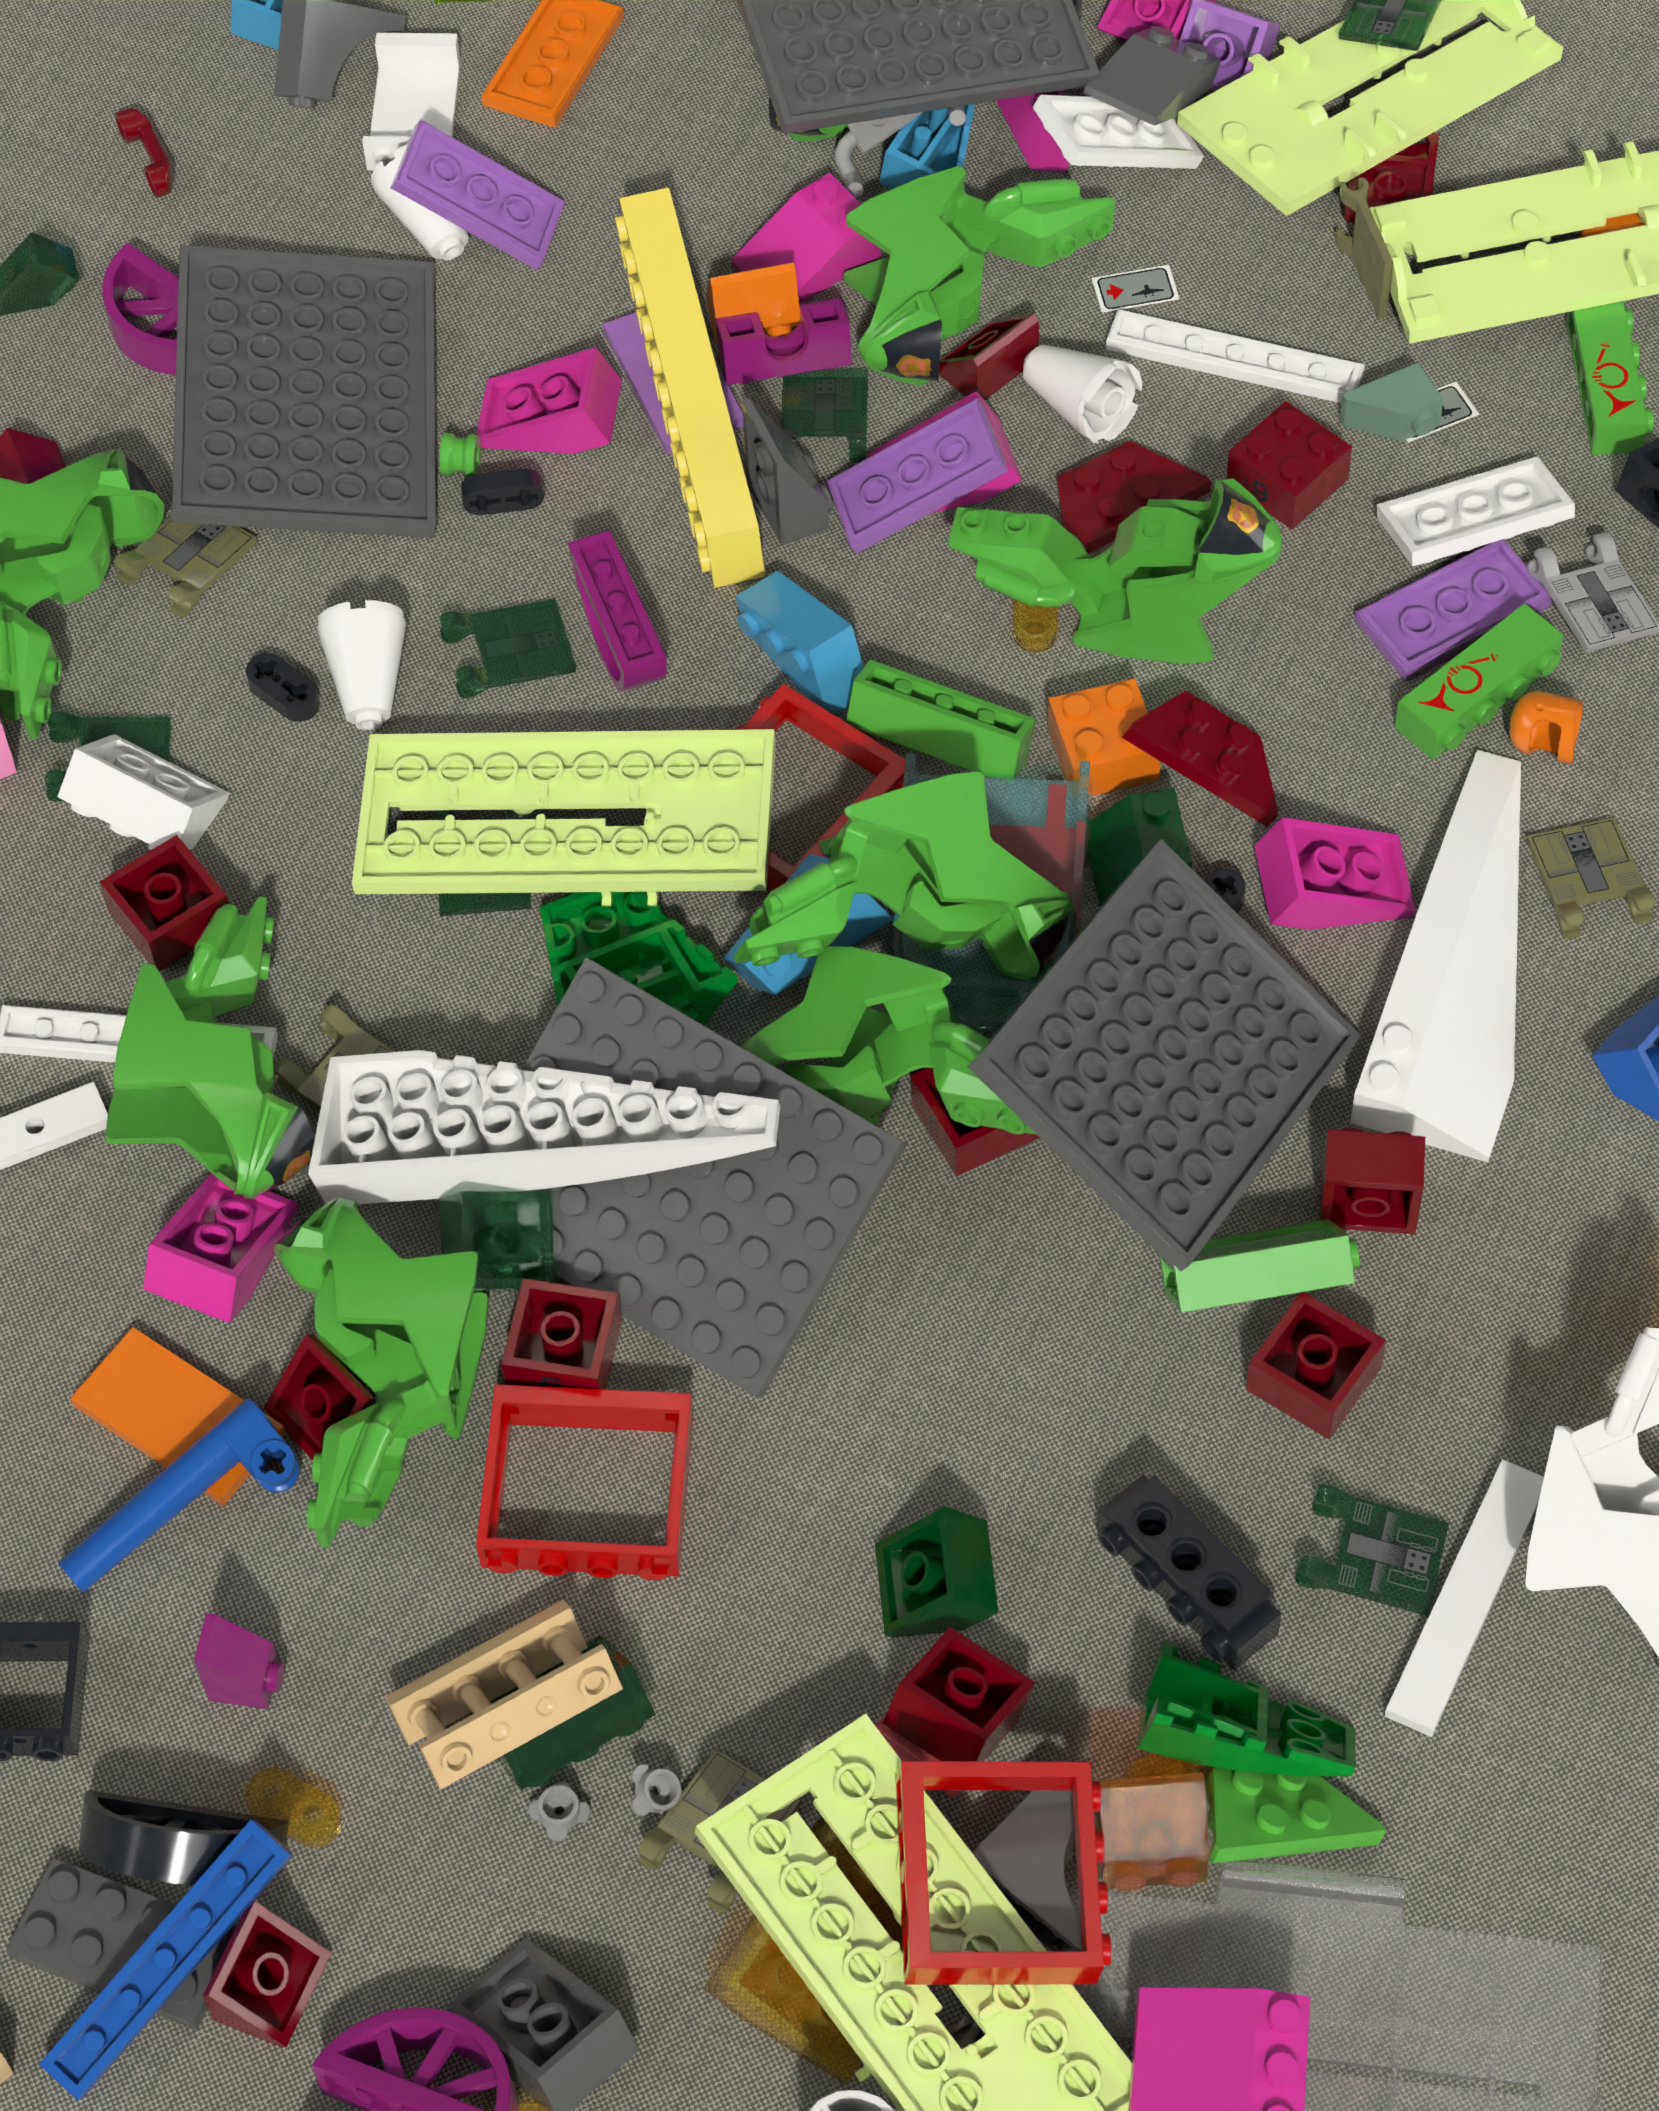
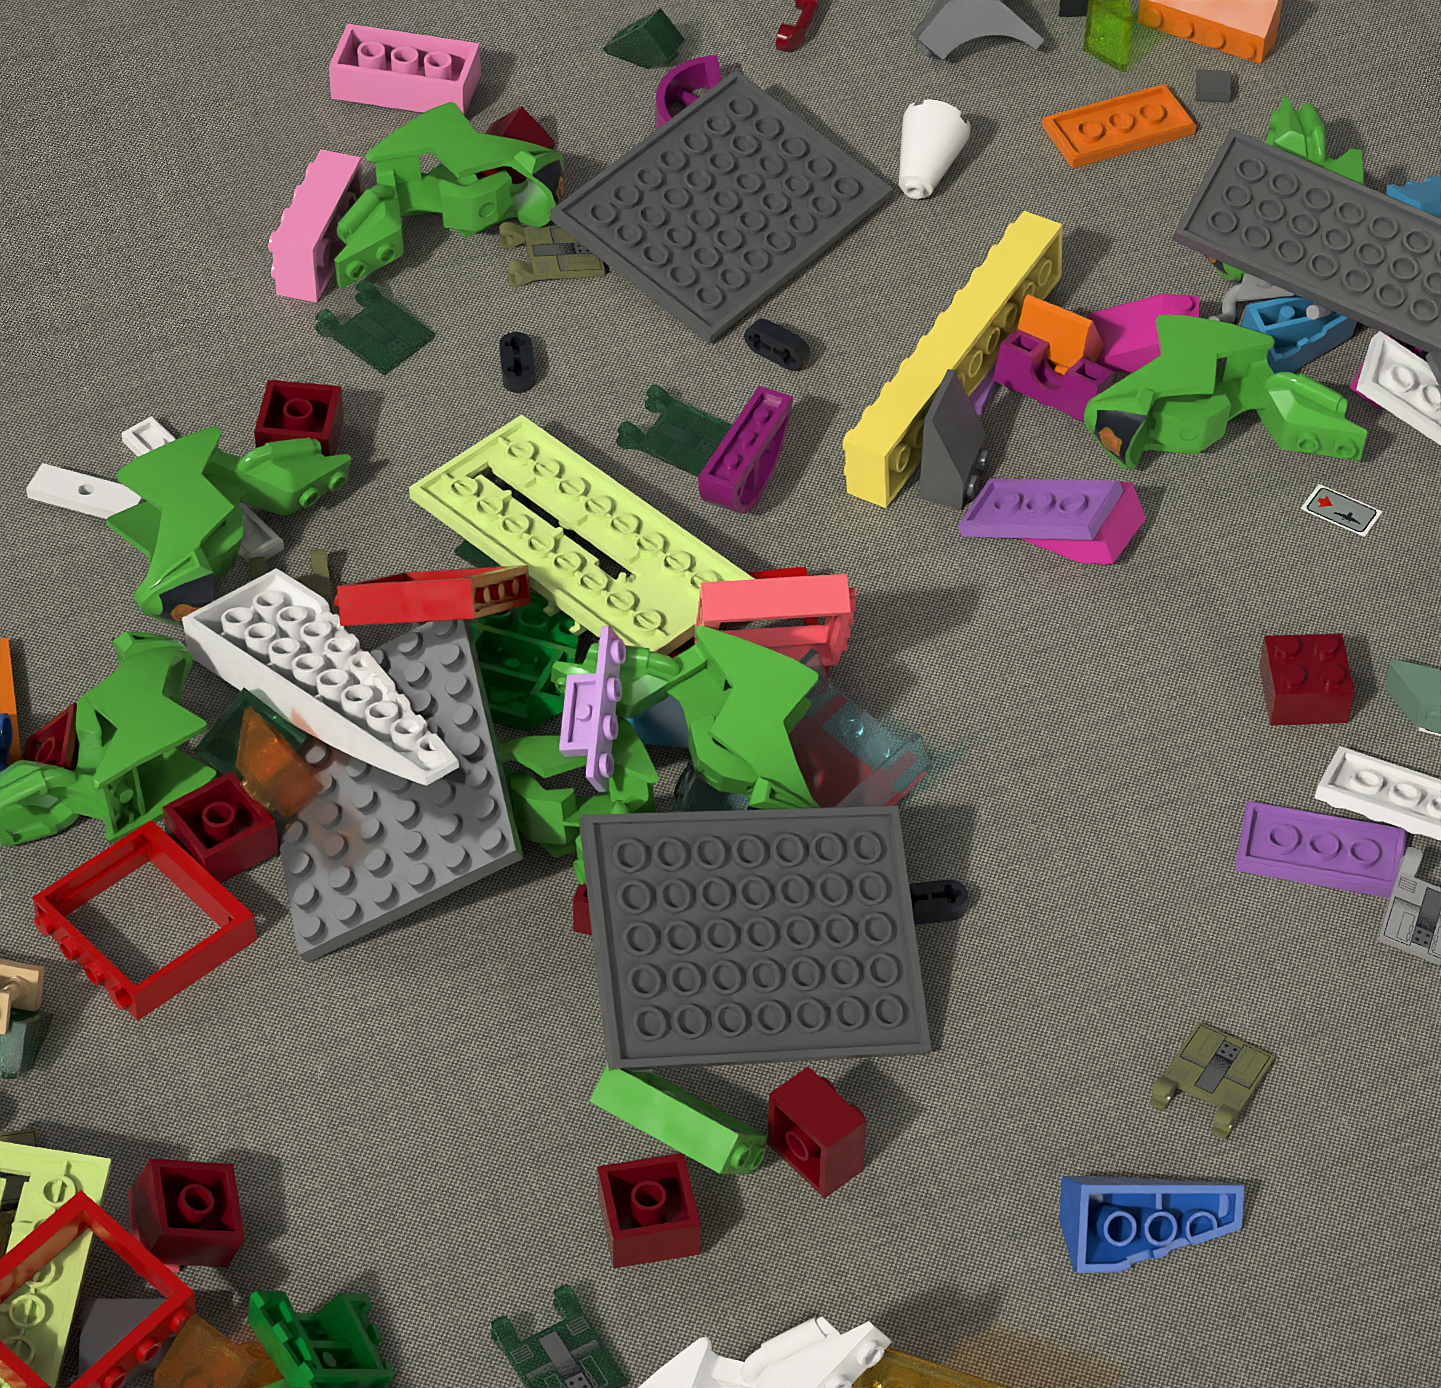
camera: 40 degrees right, 10 degrees down
(139, 793) = (361, 356): white slope -> none
(217, 1248) = (82, 622): dark pink slope -> none
(364, 658) = (575, 374): white cone -> none
(414, 83) = (1004, 92): white panel -> none
(460, 454) = (776, 305): bright green wheel -> none
(478, 194) = (958, 163): medium lavender tile -> none
(538, 989) = (433, 595): none -> red window
(552, 406) = (867, 318): dark pink slope -> none
(574, 1242) = (272, 767): none -> clear orange slope
(803, 639) = (853, 547): dark azure wedge -> none
(827, 406) = (1042, 436): clear green flag -> none
(833, 964) = (590, 711): none -> lavender bracket
(872, 756) = (784, 600): none -> coral window
(936, 1575) = (277, 1139): dark green slope -> none
(940, 721) = (887, 668): bright green brick -> none
(991, 355) = (1185, 484): dark red slope -> none
(1035, 620) = (1023, 652): clear yellow plate -> none
(1085, 389) = (1219, 541): white cone -> none
(1090, 728) = (977, 749): orange brick -> none
(1115, 485) = (1173, 621): dark red wing -> none
(1128, 831) = (934, 830): dark green slope -> none
(1163, 1540) = (421, 1265): black brick -> none
(1189, 547) = (1101, 663): bright green piece -> none
(1210, 752) = (1032, 802): dark red wing -> none
(1233, 356) = (1355, 591): white tile -> none
(1332, 875) = (1030, 942): dark pink slope -> none
(1449, 1021) = (1005, 1080): white wedge -> none
(1479, 682) = (1277, 901): bright green brick -> none
(1546, 723) = (1291, 960): orange helmet -> none

